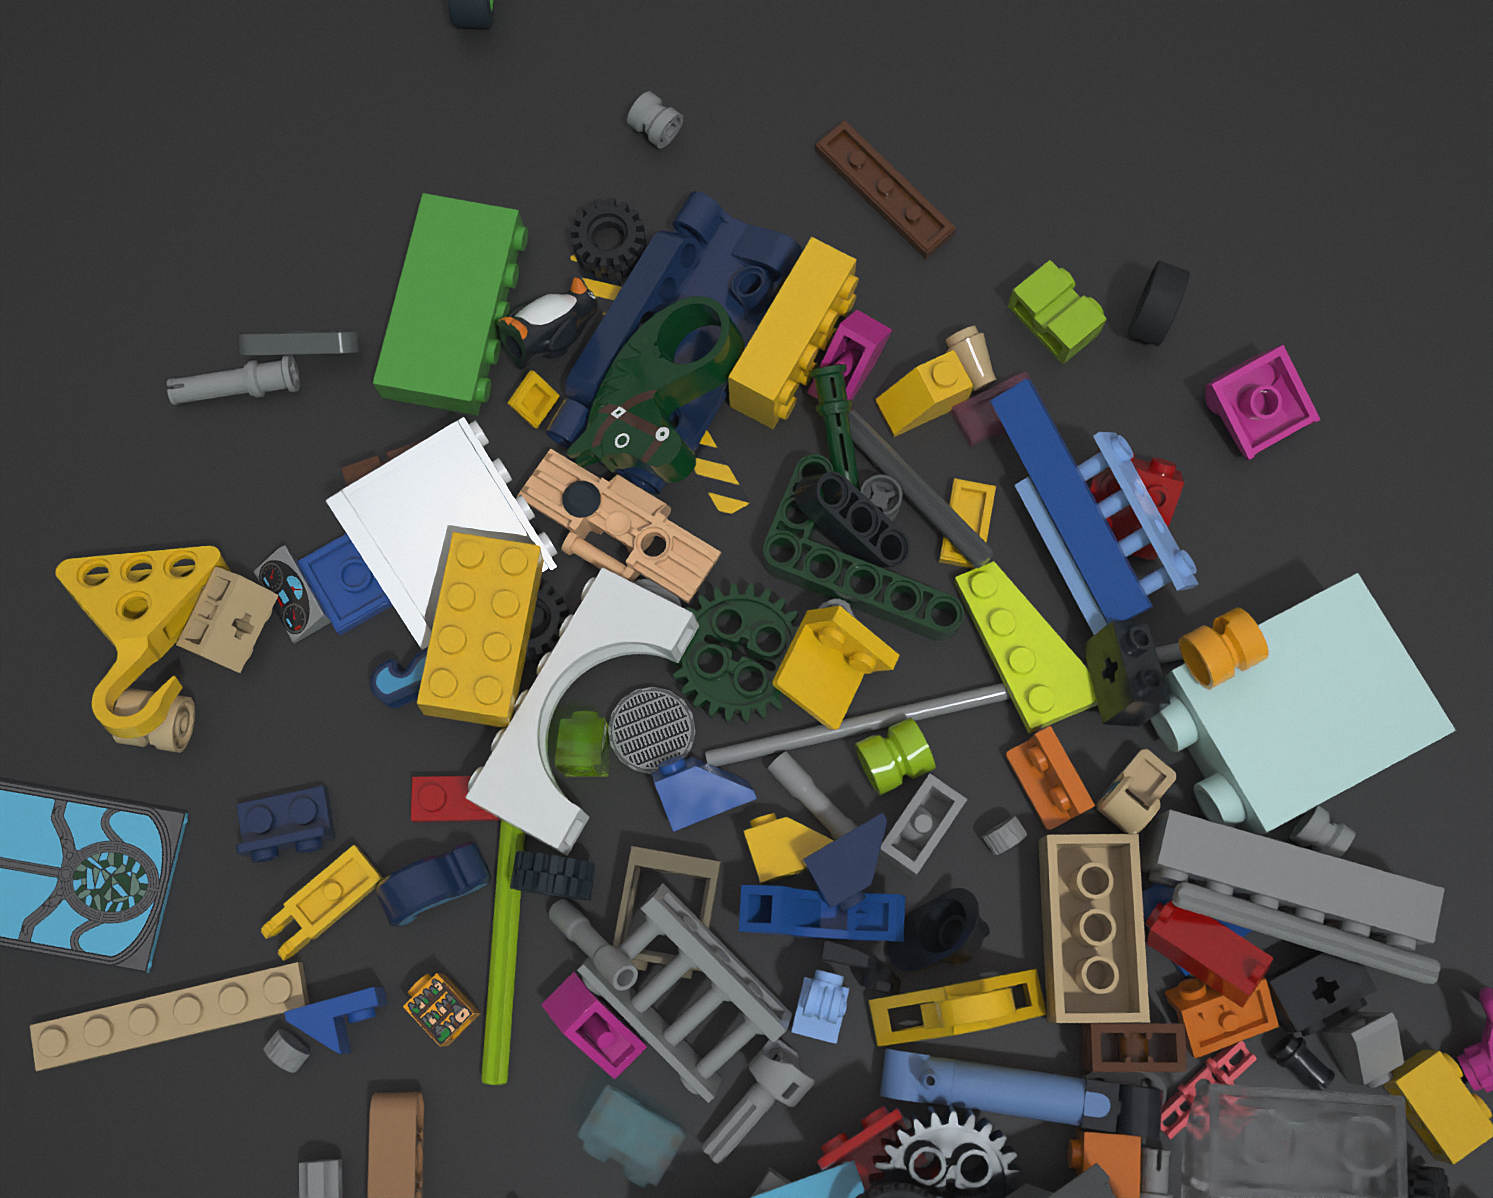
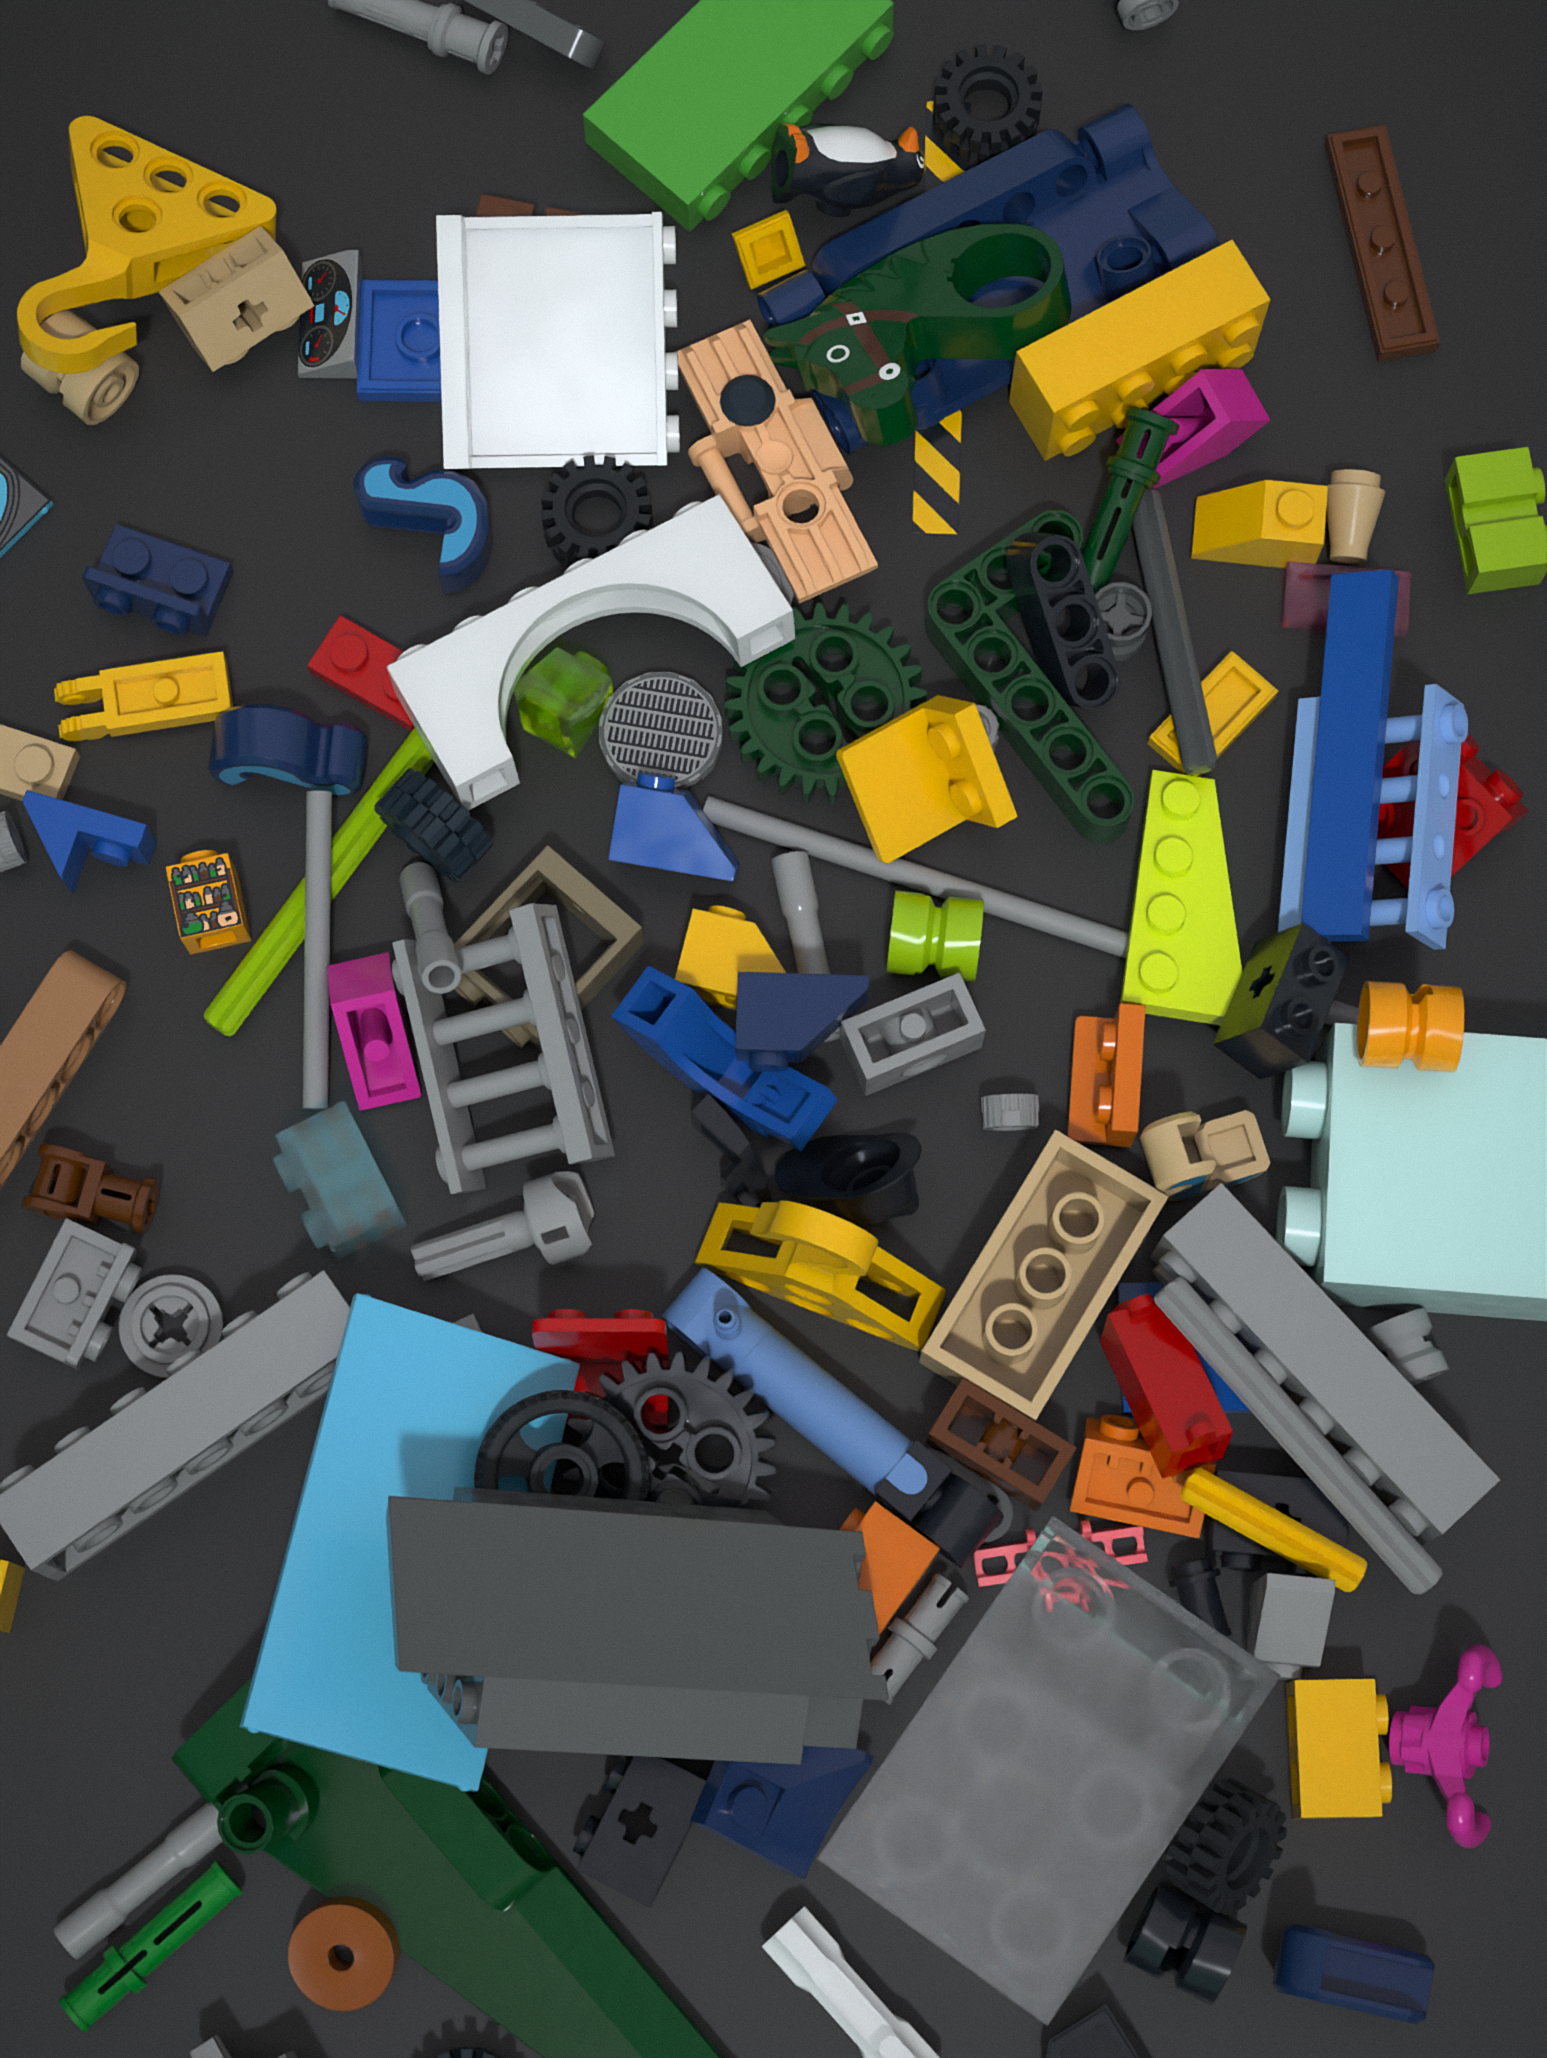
camera: 30 degrees right, 0 degrees up
(481, 630) = (527, 482): yellow brick -> none
(528, 998) = (317, 950): none -> light grey piece
(821, 1007) = (655, 1169): light blue brick -> none
(1327, 999) = (1273, 1529): none -> yellow axle

